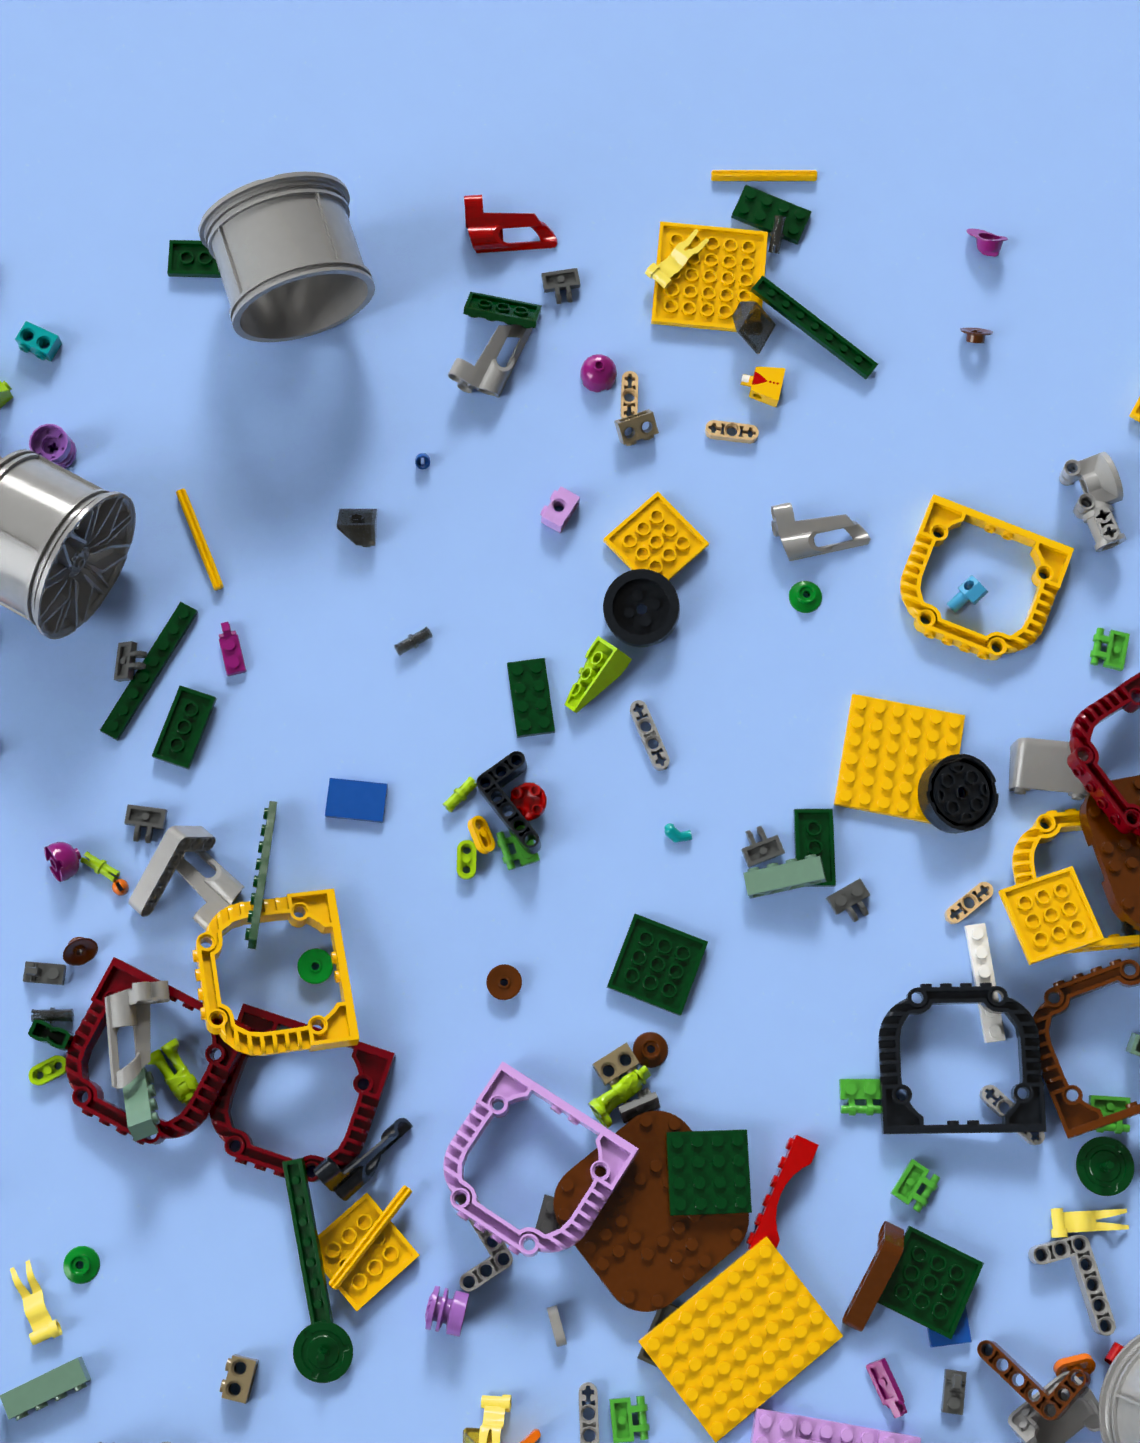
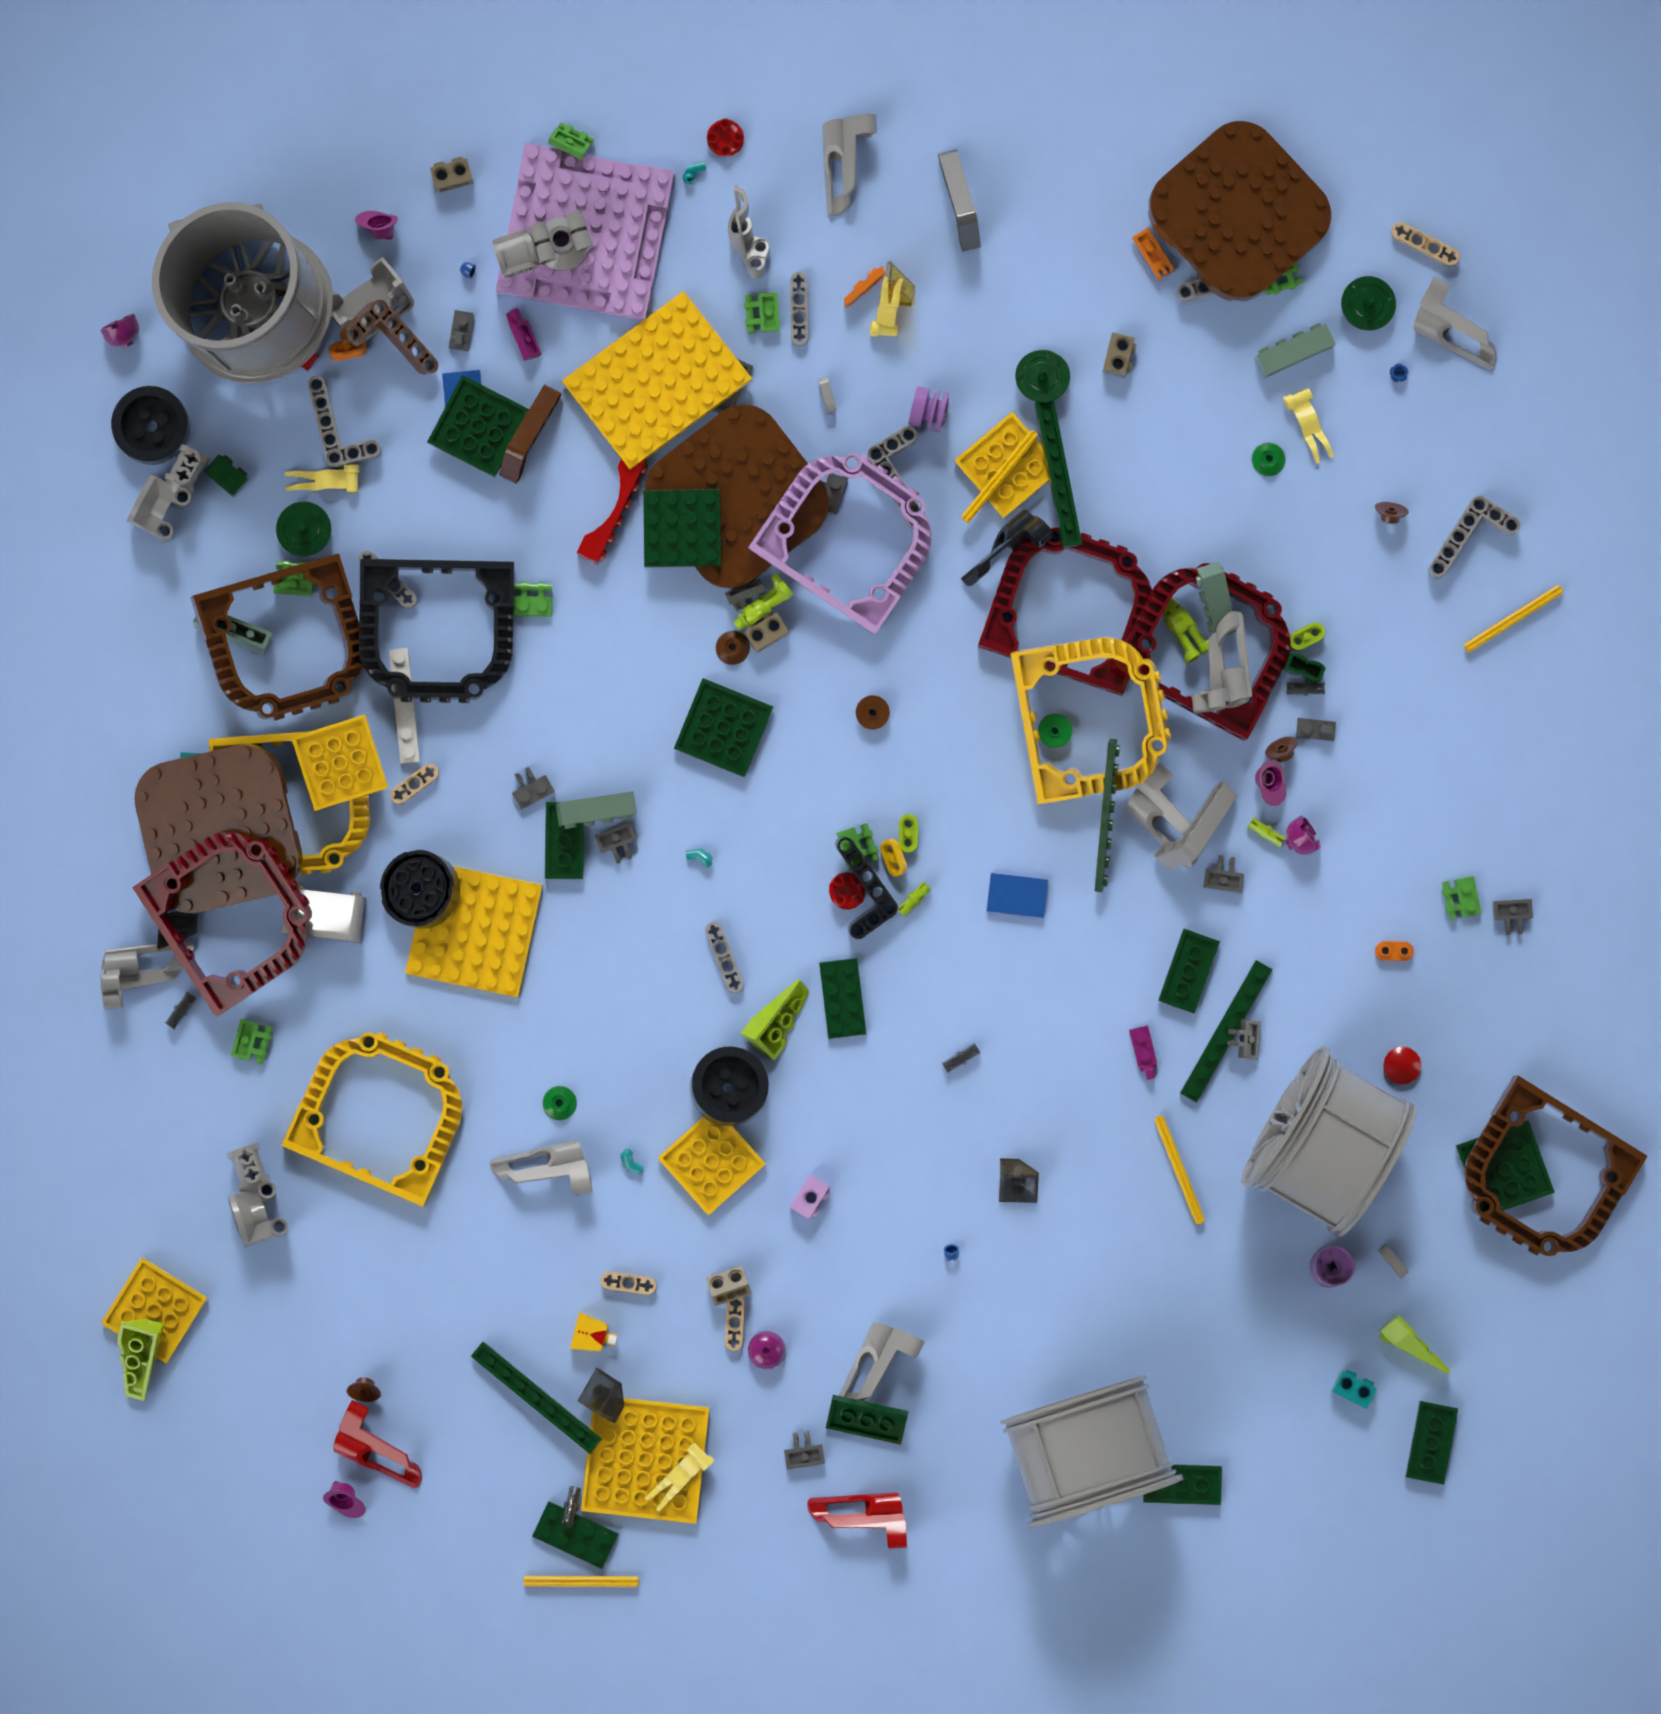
camera: 175 degrees left, 10 degrees up
(91, 915) = (1271, 781): none -> magenta piece
(124, 885) = (1242, 814): orange hinge -> none
(735, 539) = (628, 1163): none -> teal arm
(909, 1183) = (489, 519): bright green plate -> none
(969, 590) = (395, 1098): dark azure piece -> none
(977, 282) = (358, 1444): none -> red panel

